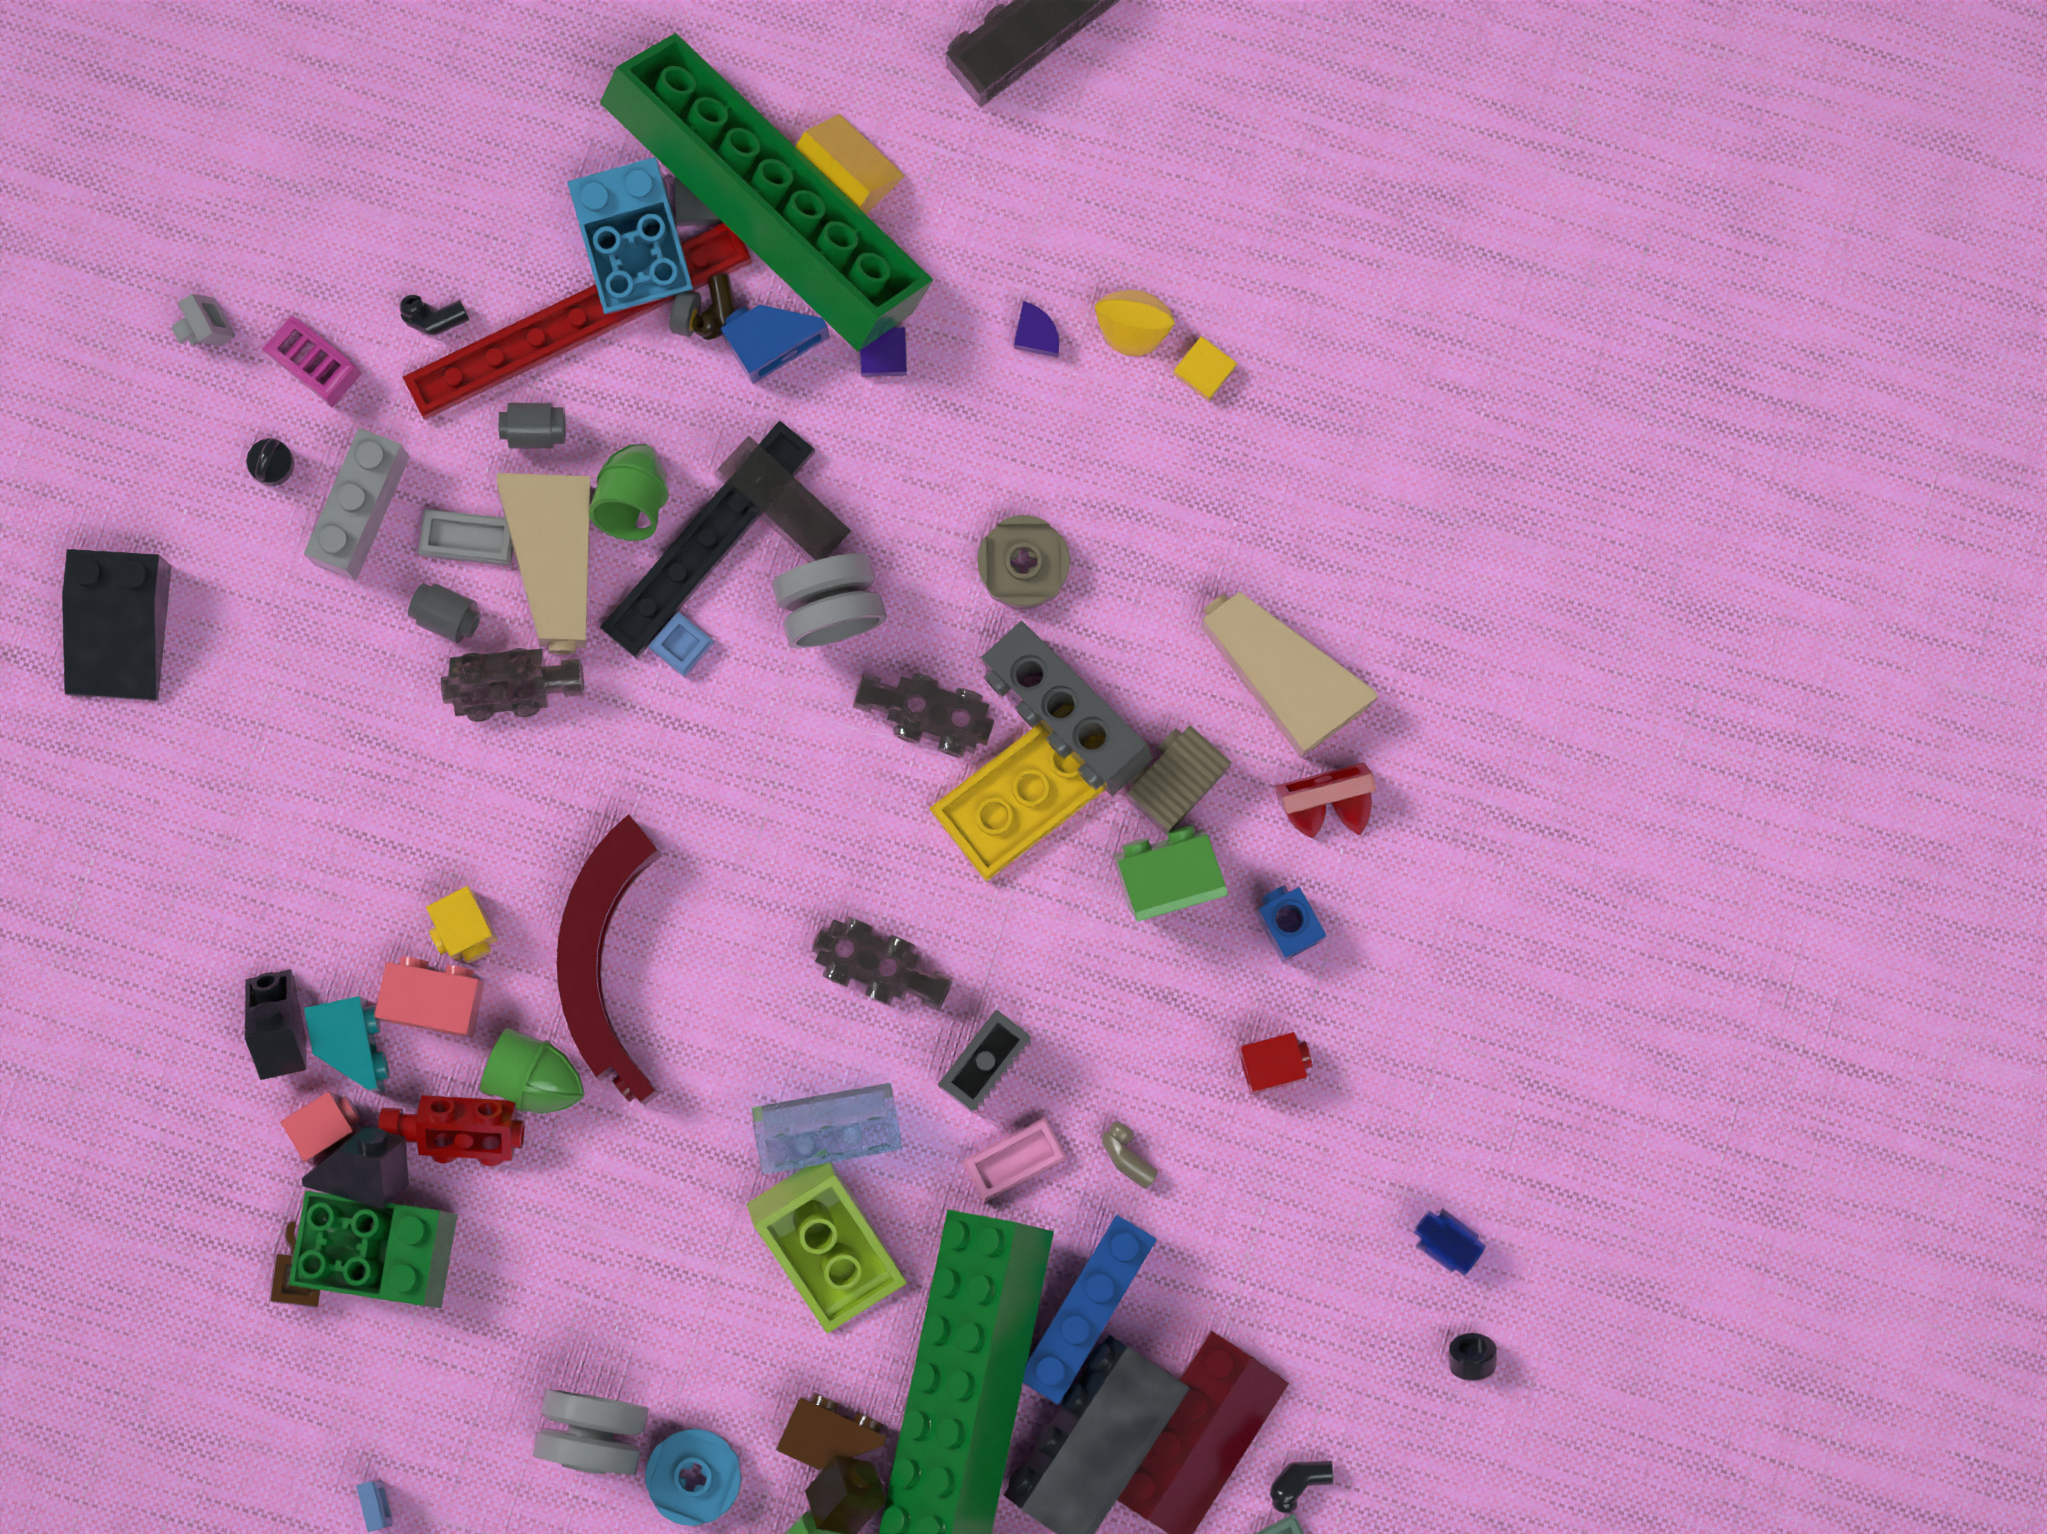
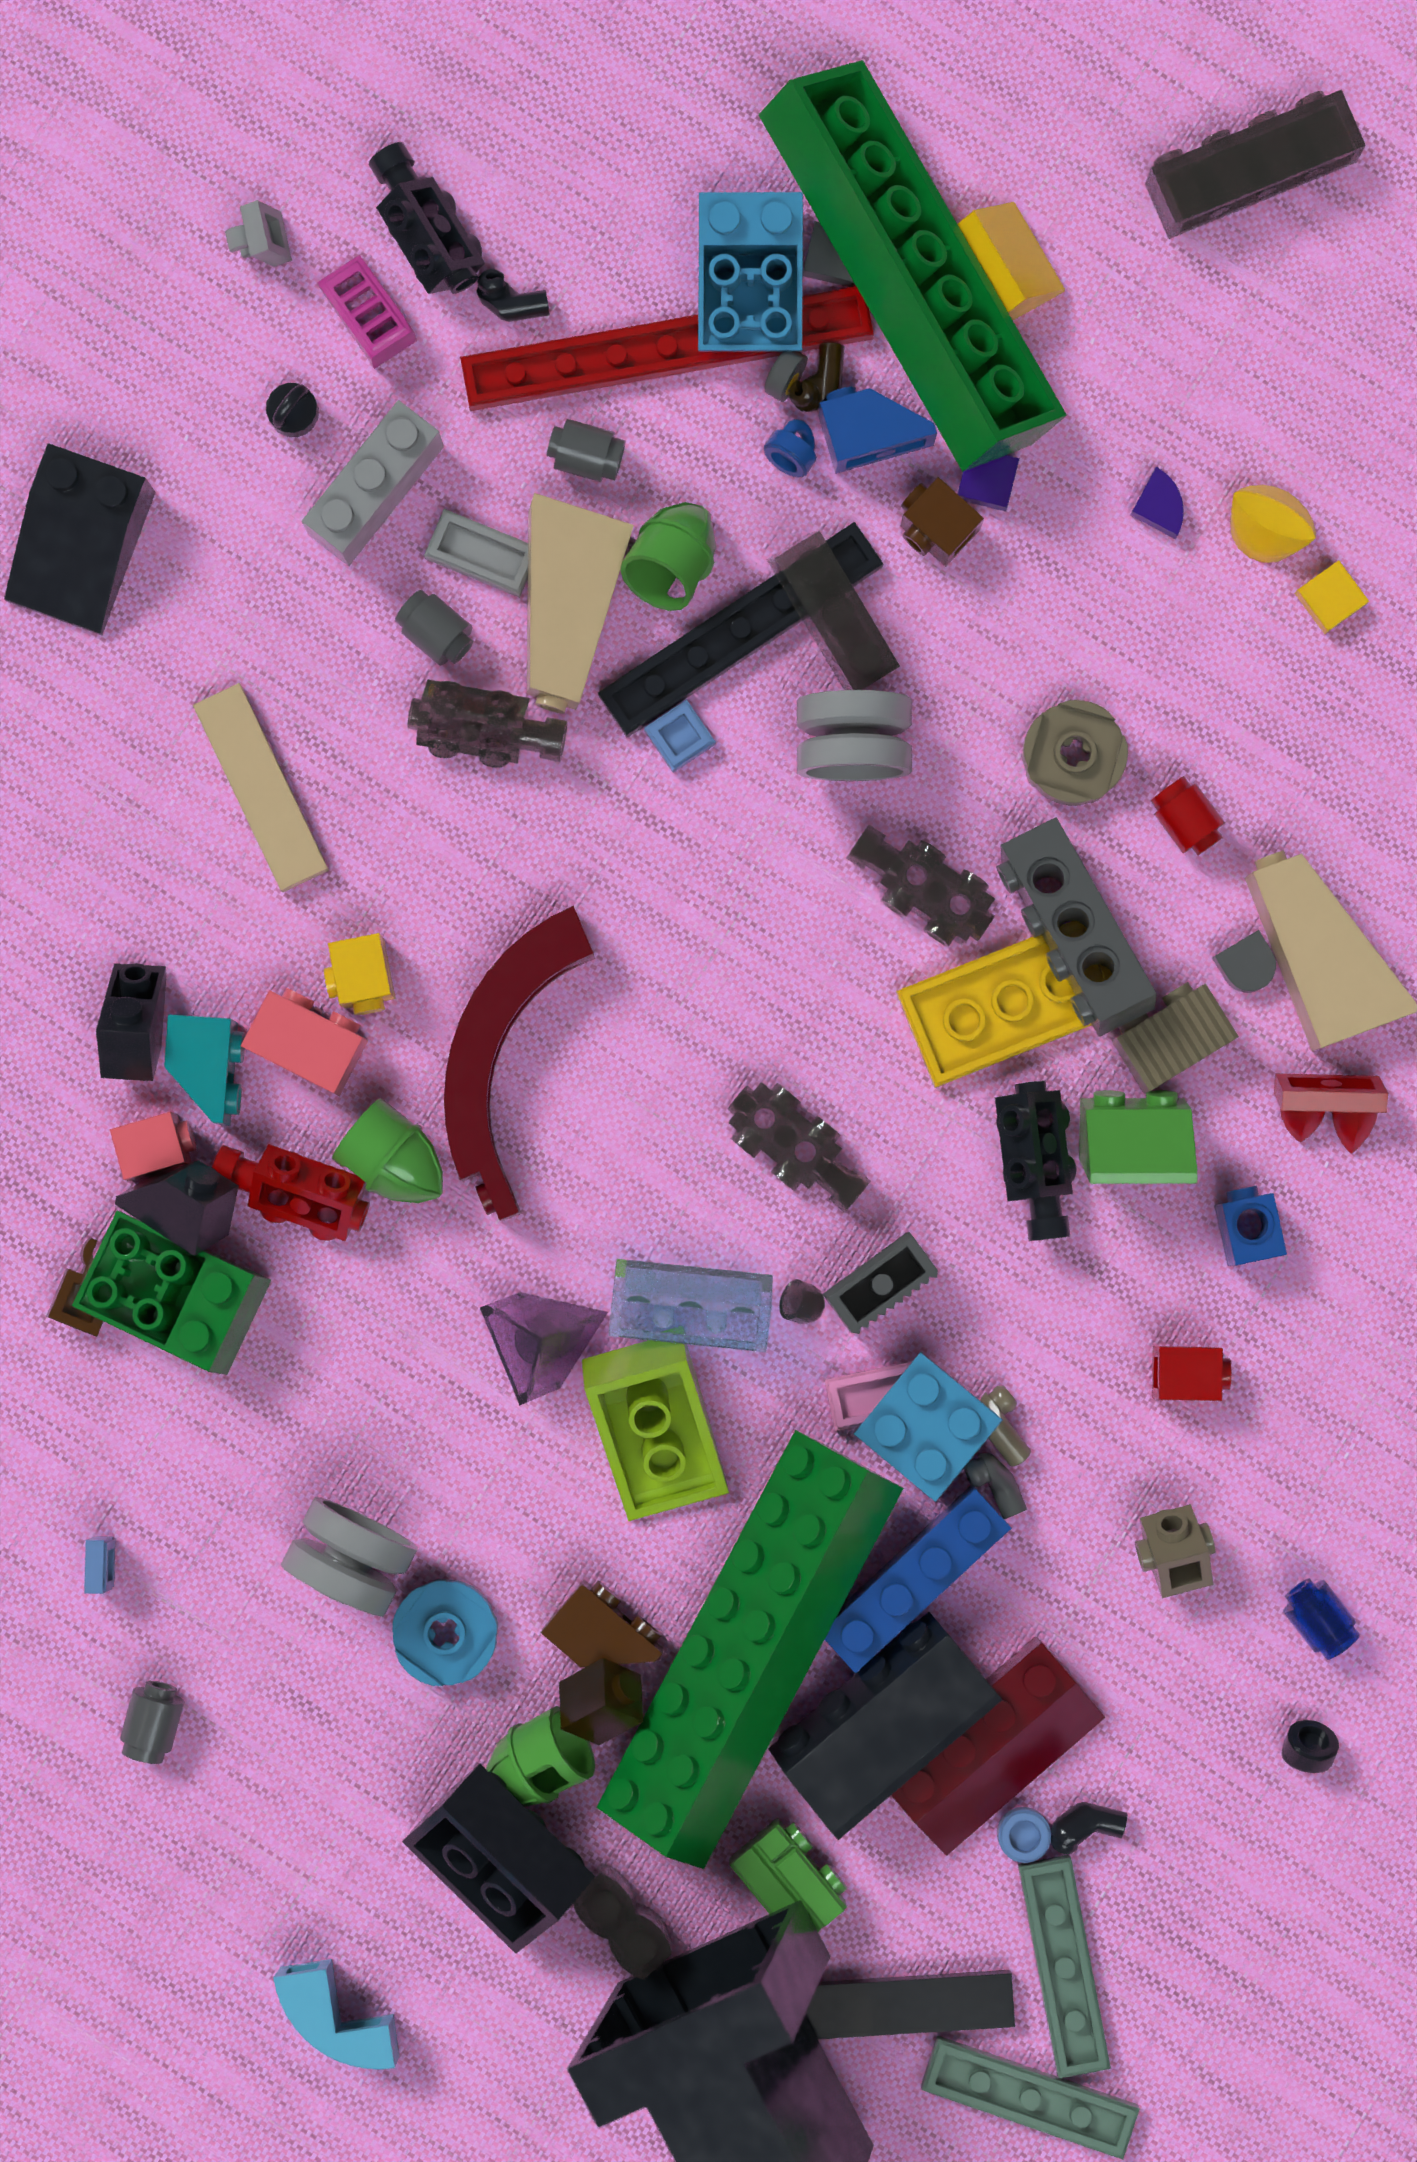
camera: 15 degrees right, 5 degrees up
(331, 791) = (261, 787): none -> tan tile
(344, 282) = (427, 236): none -> black brick
(705, 1198) = (539, 1340): none -> clear purple slope
(708, 377) = (789, 452): none -> blue tile
(851, 399) = (938, 521): none -> reddish brown brick
(923, 1099) = (801, 1302): none -> clear smoke hinge
(1061, 1174) = (928, 1426): none -> dark azure plate
(1085, 914) = (1030, 1156): none -> black brick
(1135, 588) = (1188, 816): none -> red brick
(1139, 1203) = (1000, 1480): none -> dark grey arm
(1223, 699) = (1247, 964): none -> dark grey tile
(1248, 1506) = (1024, 1834): none -> medium blue tile
(1306, 1218) = (1176, 1550): none -> dark tan brick

